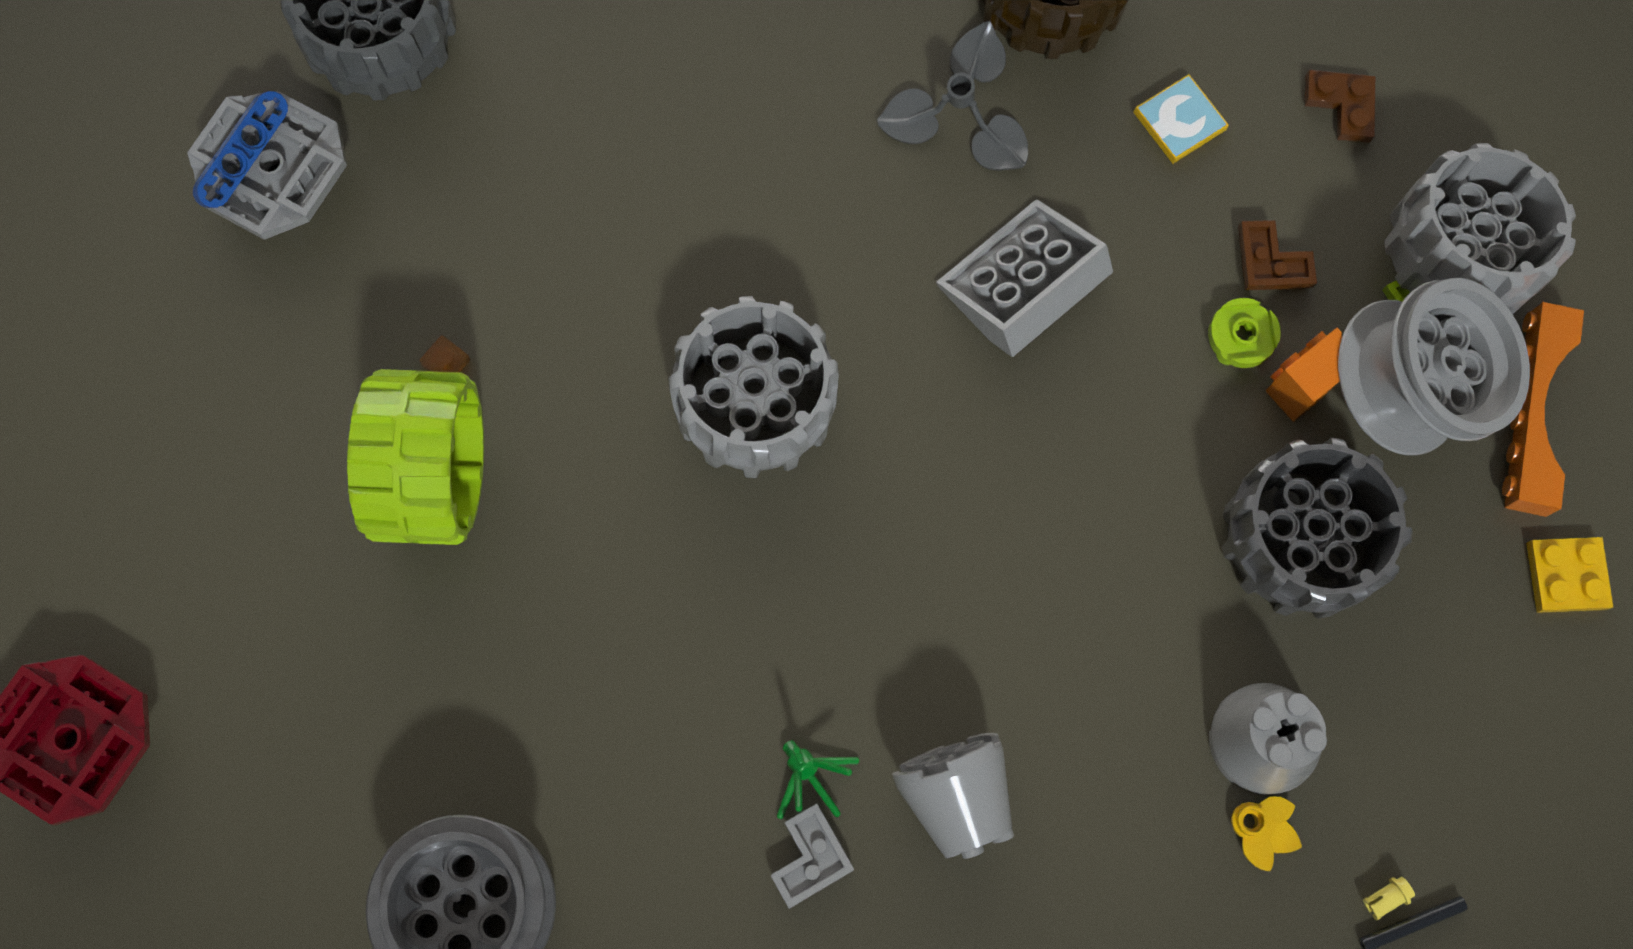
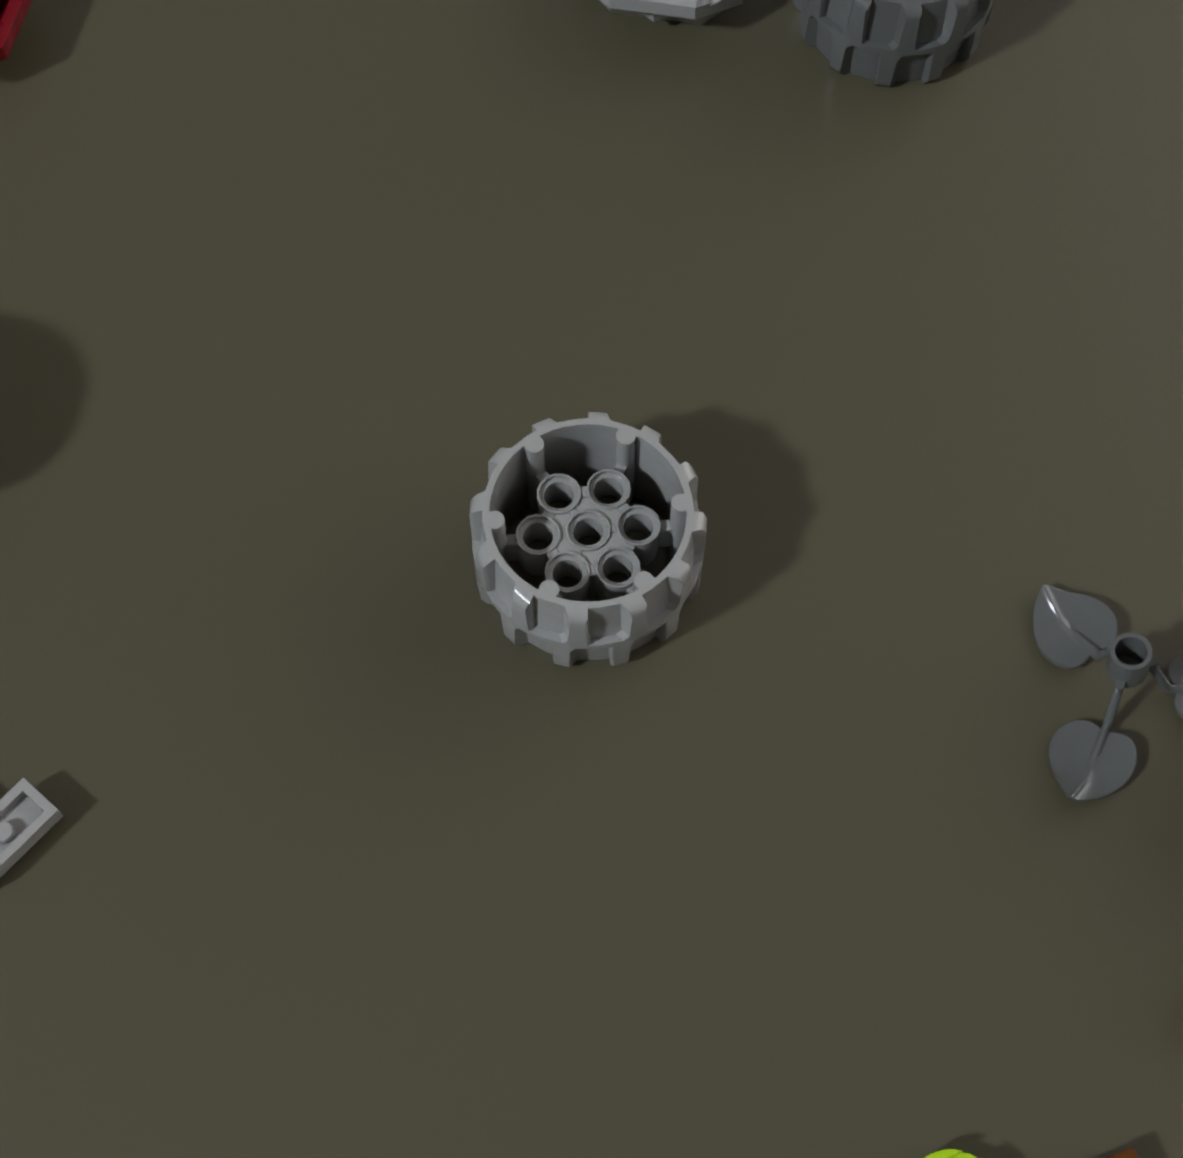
camera: 75 degrees right, 10 degrees down
(416, 457) = (345, 188): lime wheel -> none
(444, 357) = (506, 210): clear orange plate -> none
(803, 768) = (105, 780): green plant -> none
(960, 794) = (105, 985): light grey cone -> none
(1026, 276) = (904, 855): light grey slope -> none

